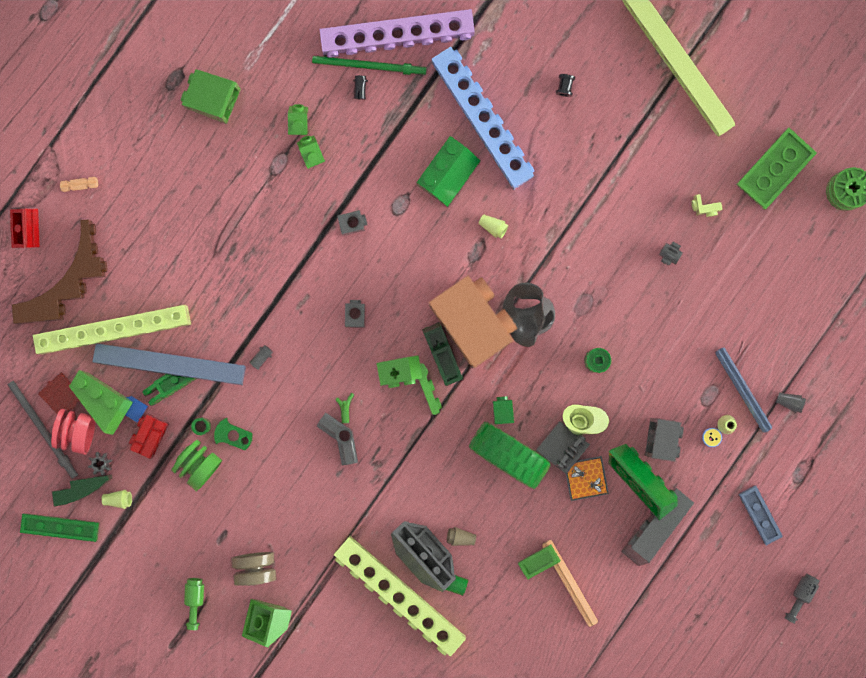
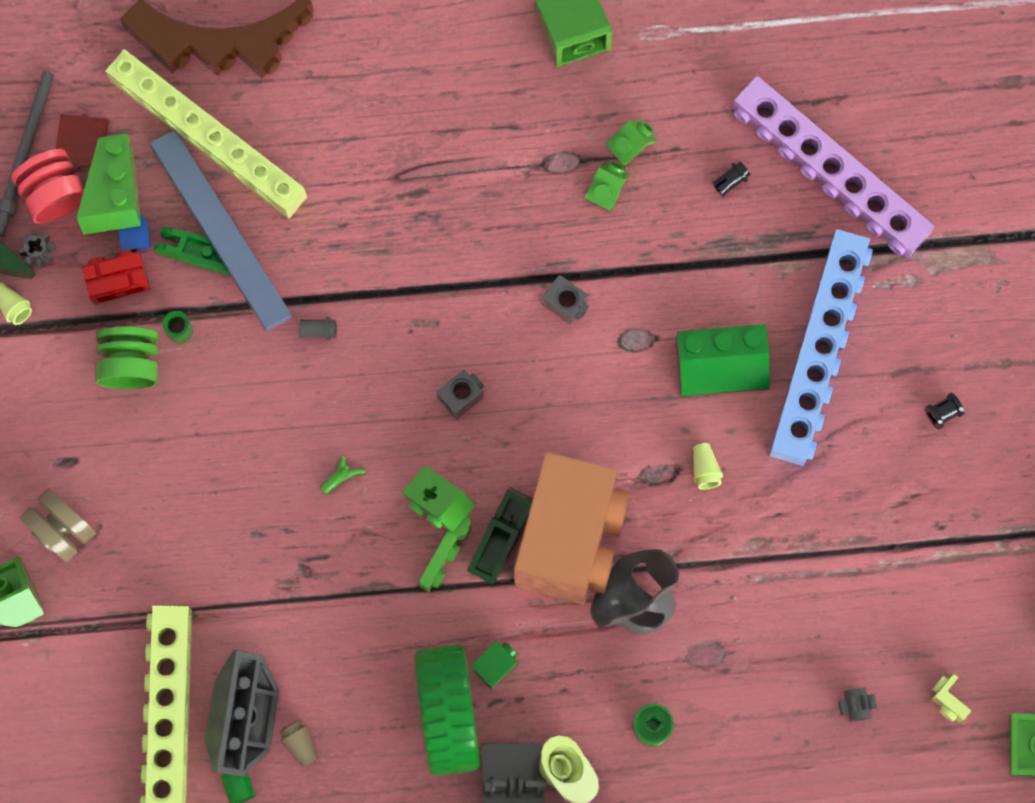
camera: 50 degrees right, 10 degrees down
(221, 435) = (195, 357): green piece -> none
(346, 448) = (304, 483): dark grey piece -> none
(407, 68) = (799, 212): green bar -> none

